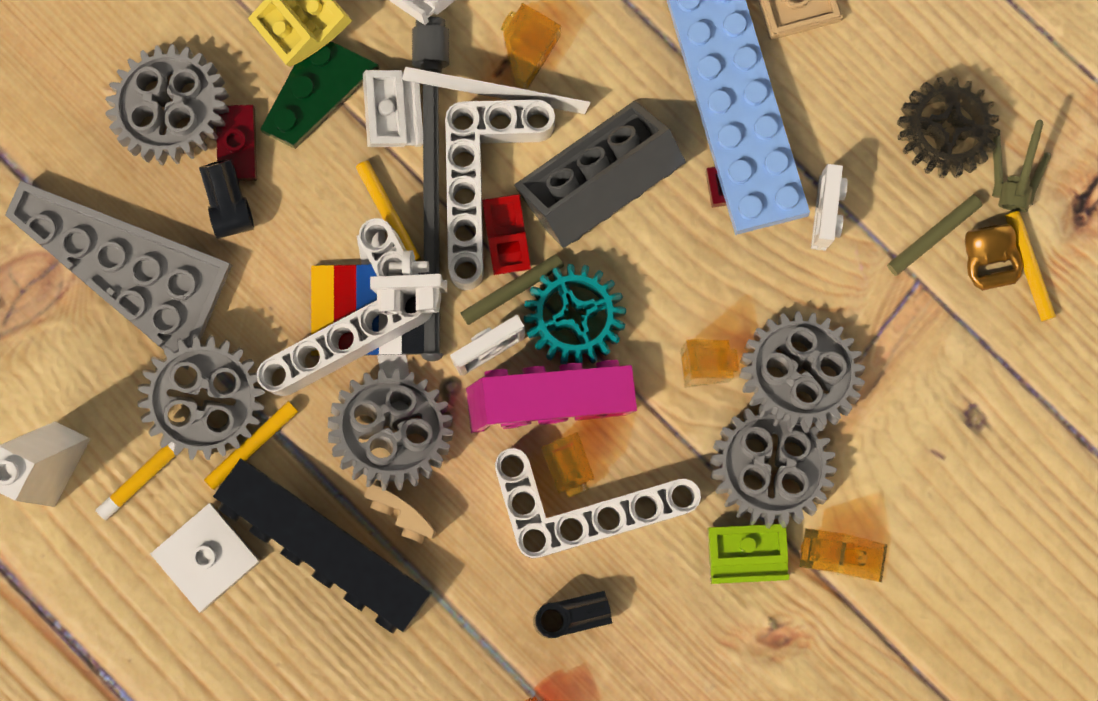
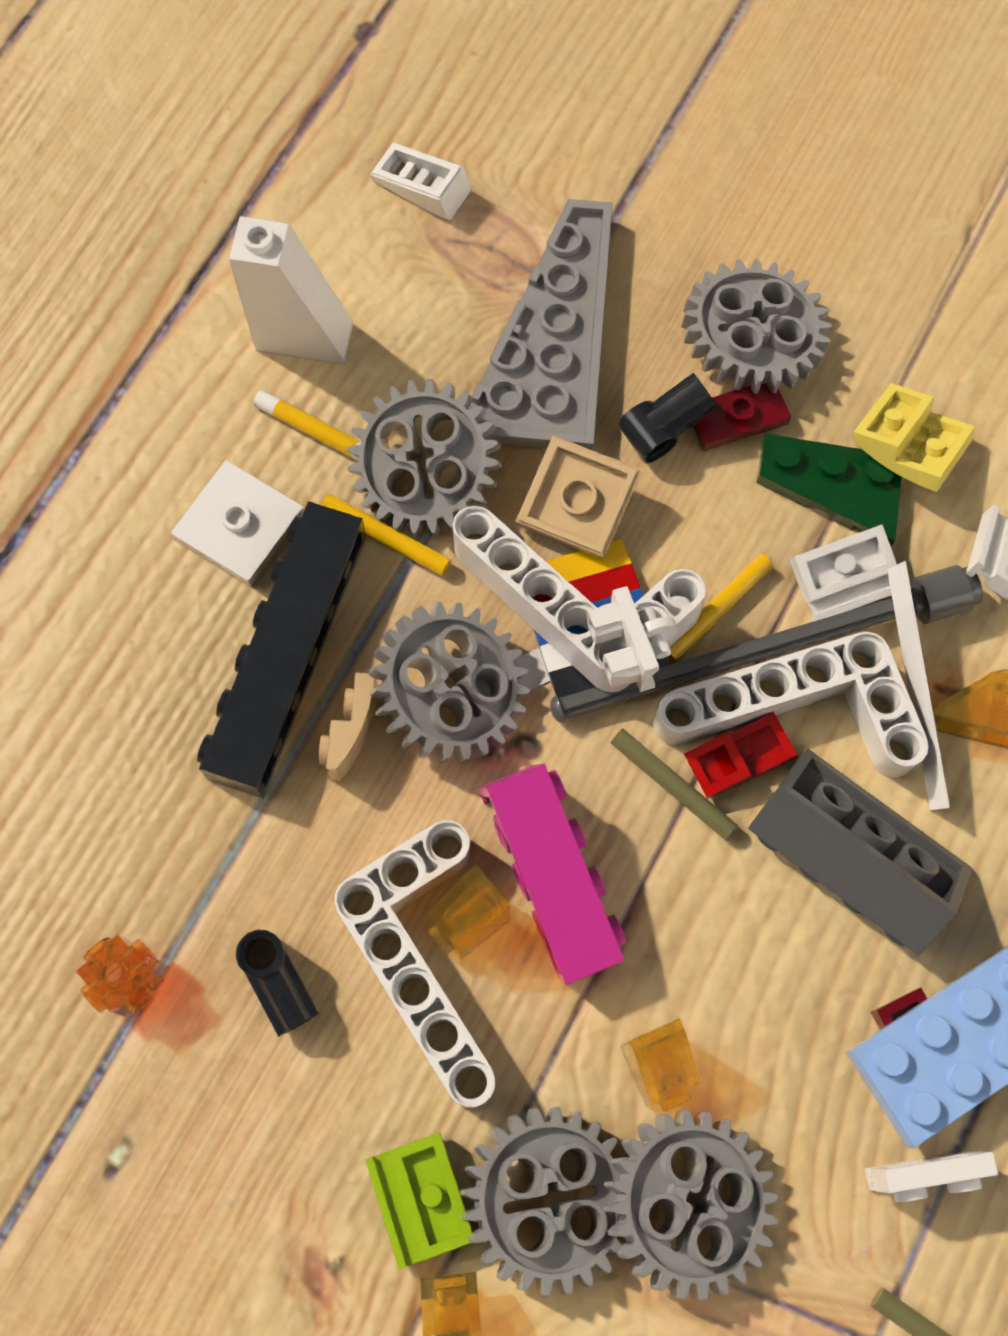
camera: 75 degrees right, 10 degrees down
(270, 288) = (578, 497): none -> tan tile
(488, 345) = (590, 767): white plate -> none
(591, 308) = (681, 888): teal gear -> none

